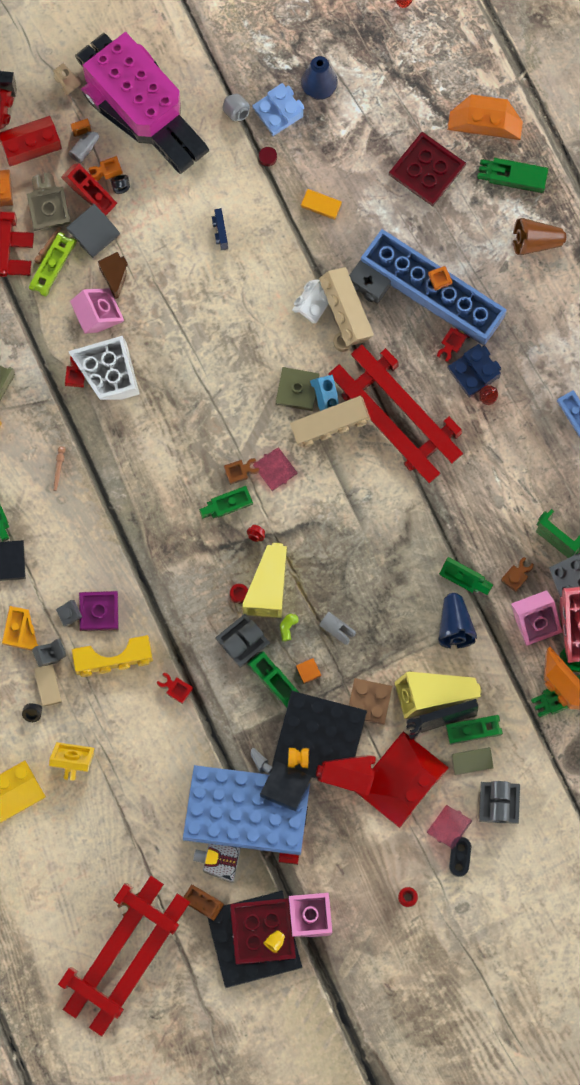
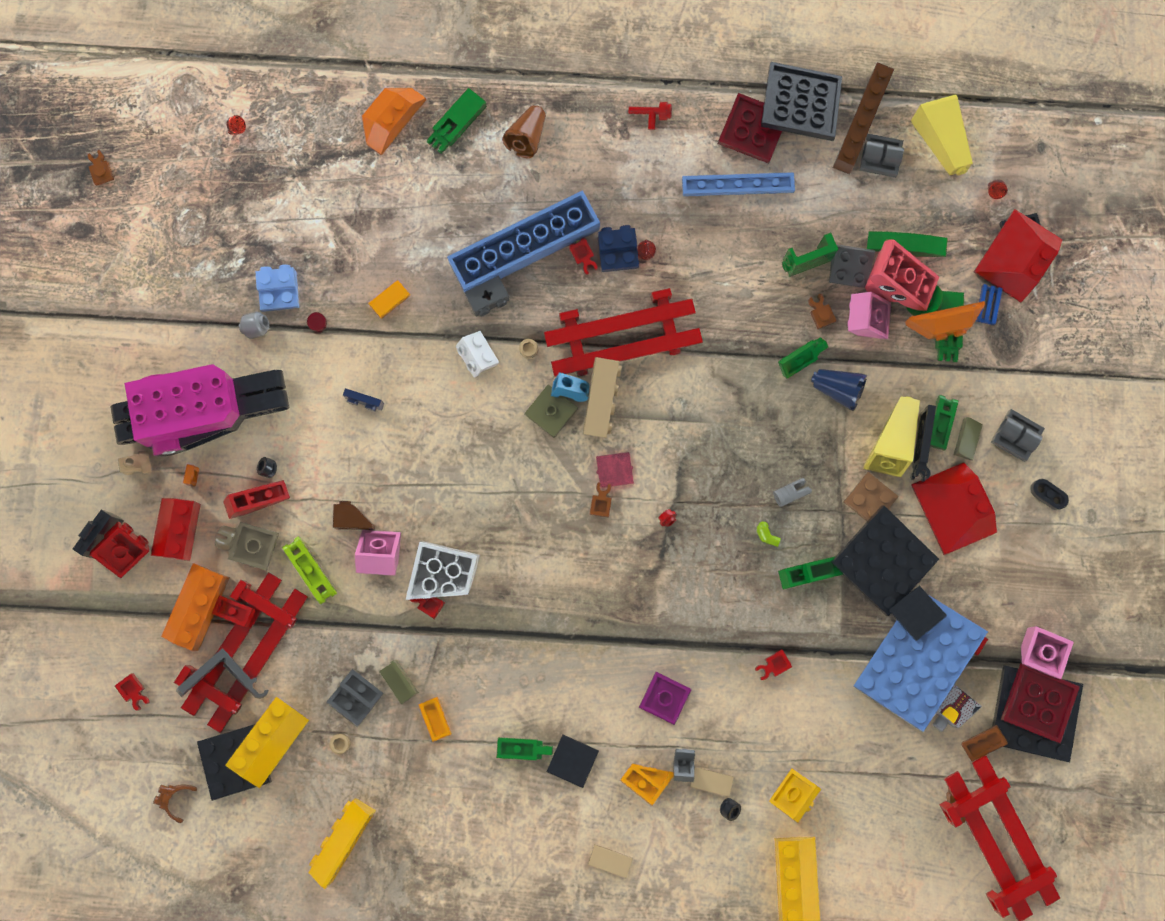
camera: 65 degrees left, 5 degrees up
(38, 259) = (292, 572): nougat piece -> none
(60, 458) = (501, 659): nougat piece -> none
(69, 613) = (654, 727): dark grey plate -> none
(84, 146) = (211, 482): light grey hinge -> none
(88, 661) = (709, 732): yellow arch -> none
(93, 230) = (298, 516): dark grey slope -> none
(109, 169) = (245, 470): orange plate -> none
(227, 503) = (626, 528): green hinge -> none
(238, 593) = (714, 562): red tile -> none
(242, 640) = (760, 581): dark grey plate -> none
(260, 761) = (879, 623): light grey bar -> none
(267, 586) = (724, 532): light yellow slope -> none
(274, 941) = (1059, 697): yellow hose -> none
(296, 757) = (899, 588): light orange wheel -> none
(308, 671) = (816, 538): orange tile -> none
(319, 79) = (270, 238): dark blue cone -> none
(346, 306) = (501, 327): tan brick -> none
(348, 773) = (938, 550): red slope -> none
(408, 890) = (1068, 558): red plate -> none
(427, 168) = (409, 190): dark red plate -> none
(440, 278) = (522, 230): orange tile -> none
(449, 826) = (1018, 489): clear pink piece -> none

